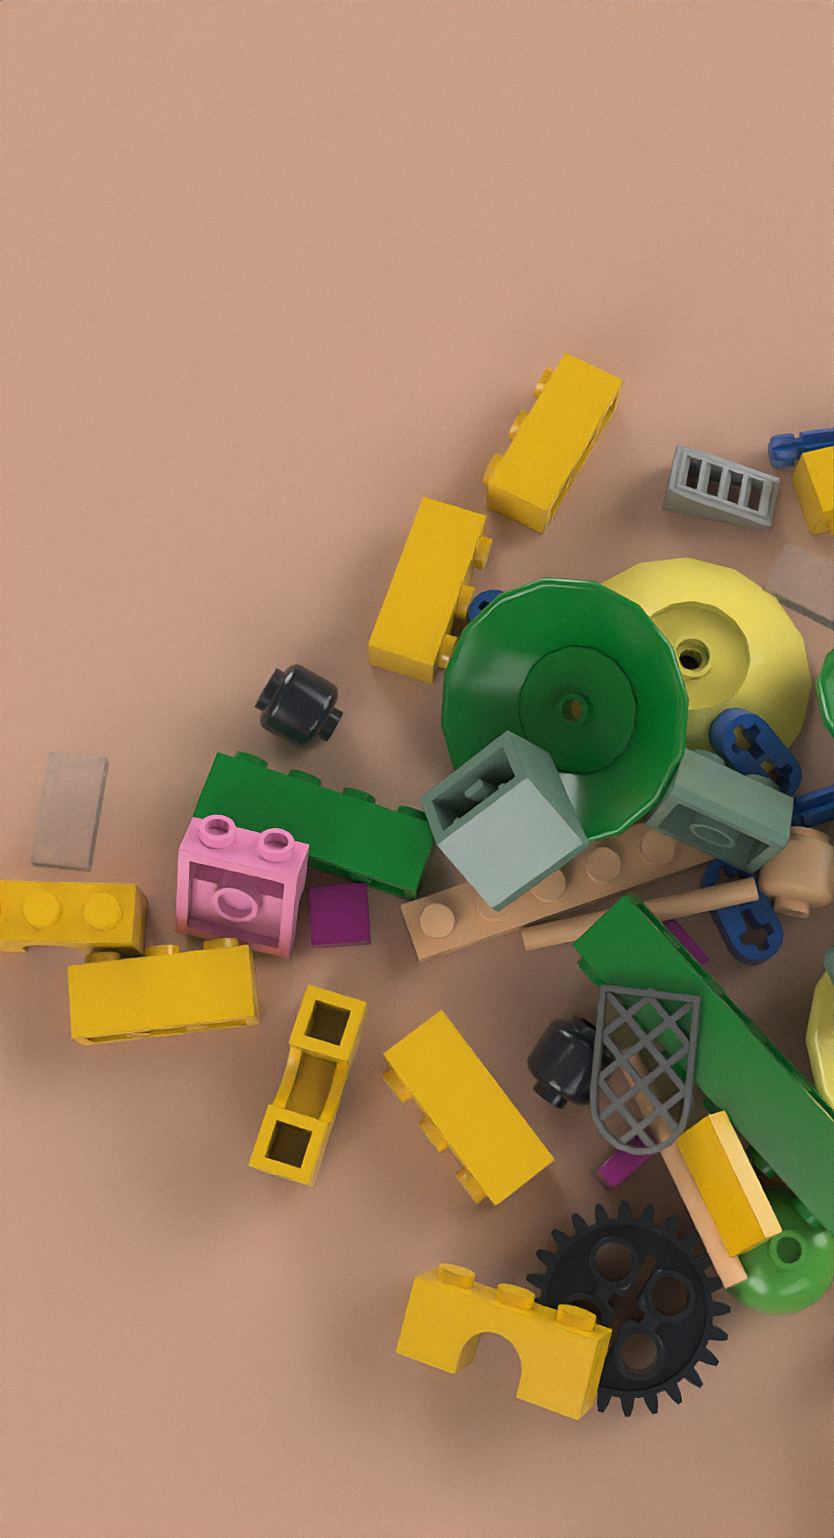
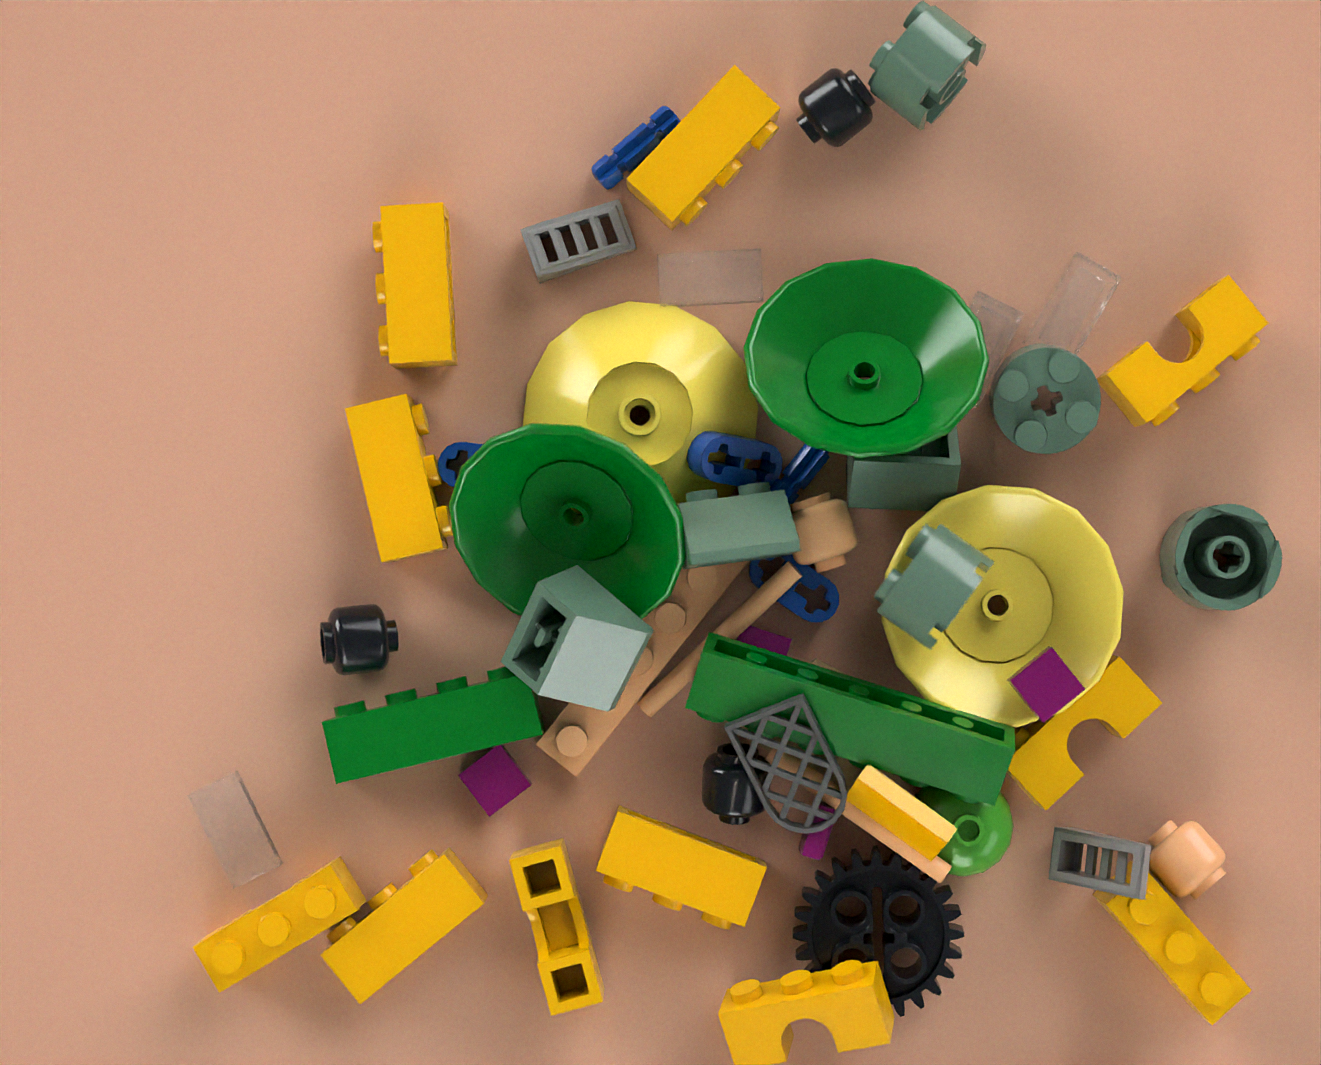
camera: 35 degrees left, 15 degrees up
(240, 884) = (407, 812): bright pink plate -> none

